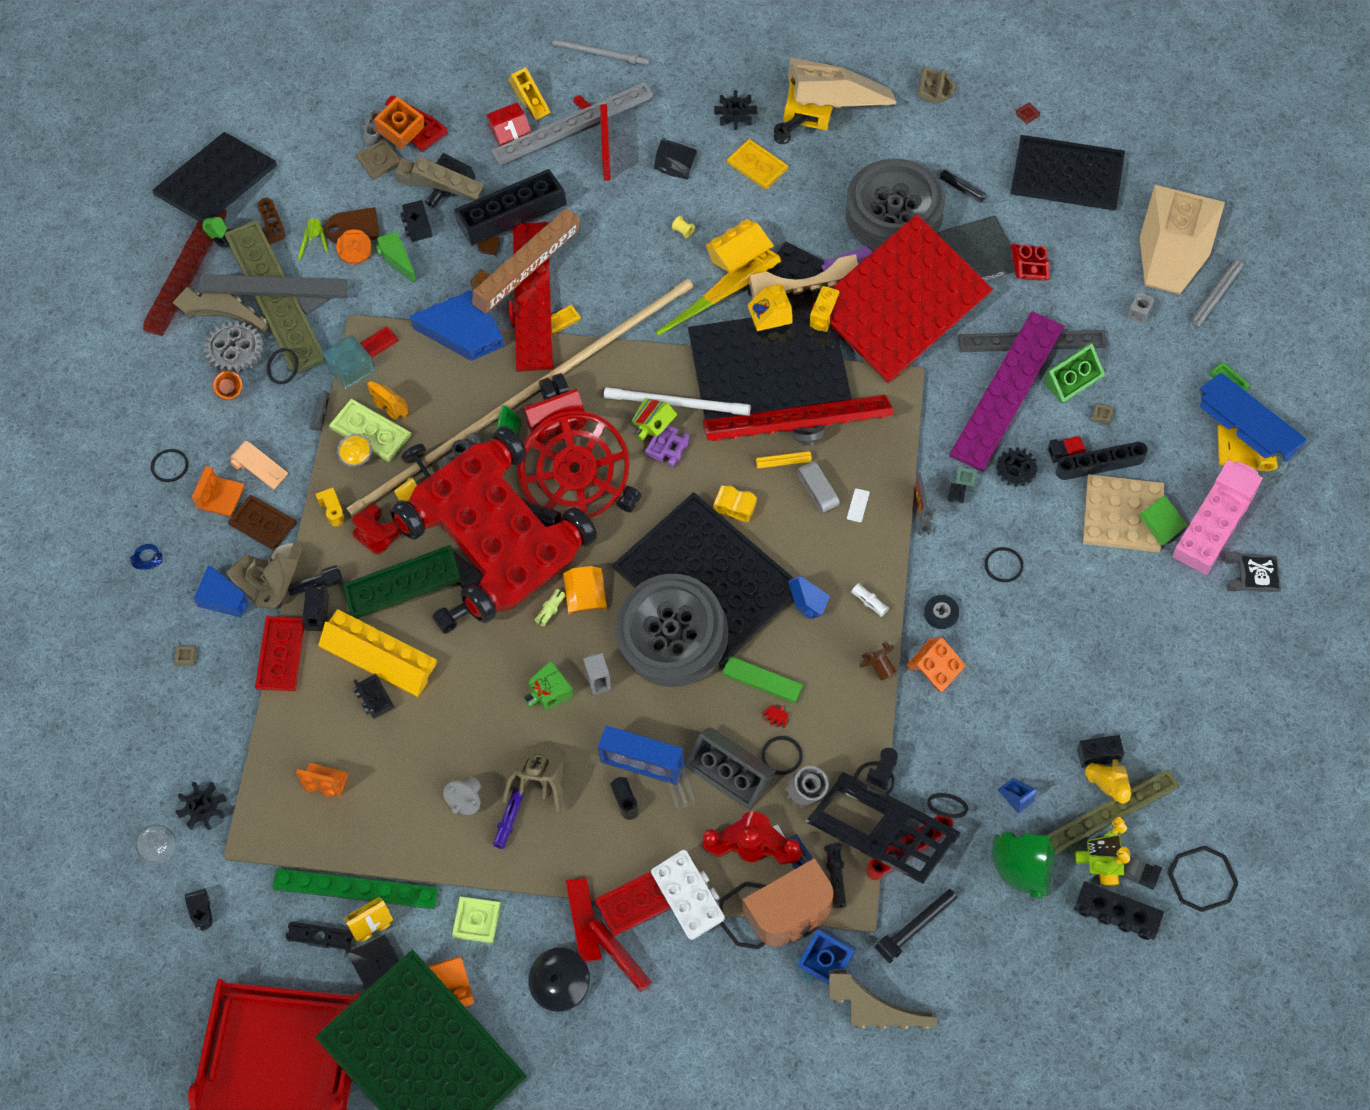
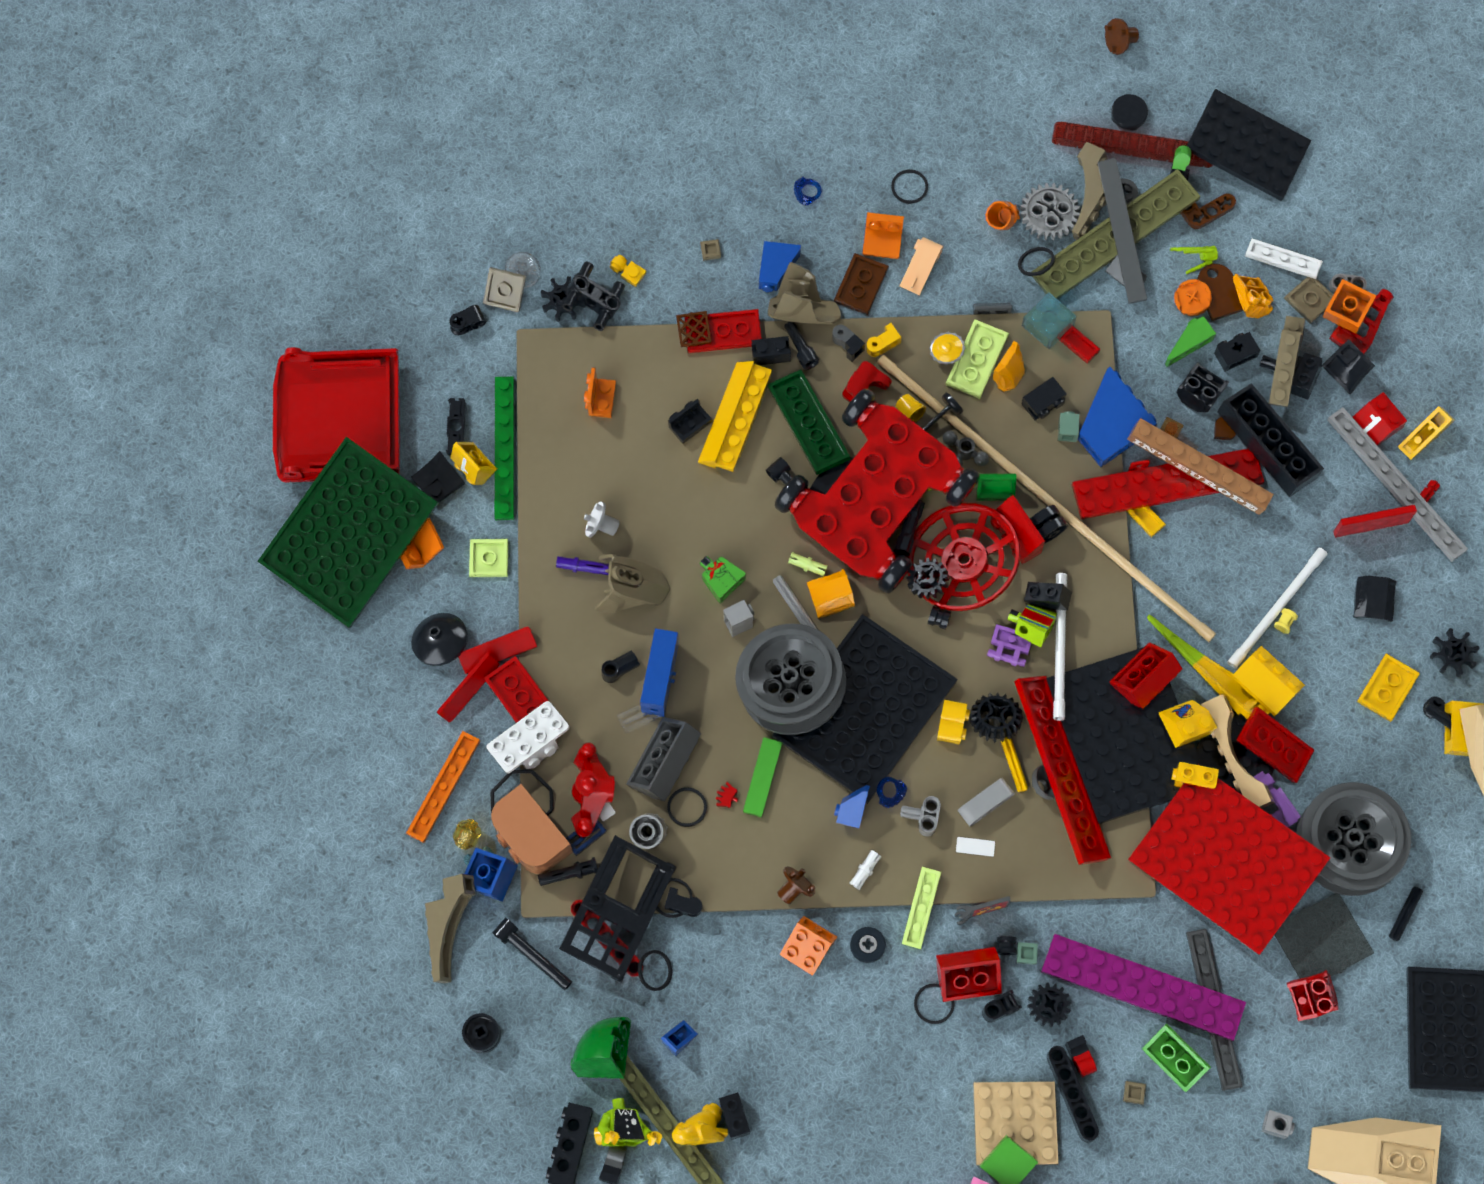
camera: 80 degrees right, 10 degrees up
(70, 261) = (1119, 36): none -> reddish brown piece
(150, 267) = (1129, 112): none -> black tile
(175, 863) = (504, 289): none -> tile
(189, 735) = (631, 273): none -> yellow plate
(208, 771) = (593, 296): none -> black piece
(272, 678) = (706, 327): none -> reddish brown window
(323, 538) = (849, 341): none -> leg
(334, 171) = (1284, 258): none -> white tile
(366, 198) = (1253, 296): none -> light orange slope
(426, 378) = (1044, 398): none -> black brick
(447, 254) = (1201, 389): none -> black slope
(453, 137) = (1348, 366): none -> black plate
(459, 362) = (1068, 426): none -> sand green brick
(588, 626) = (792, 601): none -> light grey axle
(600, 490) = (924, 586): none -> black gear
(627, 401) = (1048, 595): none -> black brick
(706, 266) = (1241, 653): none -> white piece
(719, 333) = (1146, 675): none -> red slope
(724, 995) = (443, 787): none -> orange plate
(749, 462) = (994, 723): none -> black gear
(780, 974) = (466, 834): none -> clear yellow head
(798, 560) = (901, 789): none -> clear blue piece
(799, 249) = (1275, 744): none -> red tile
(823, 540) = (923, 815): none -> light grey beam
(912, 559) = (921, 907): none -> yellowish green tile
(980, 527) = (969, 974): none -> red slope
(995, 973) = (487, 1041): none -> black wheel
(1014, 504) = (1004, 1005): none -> black piece

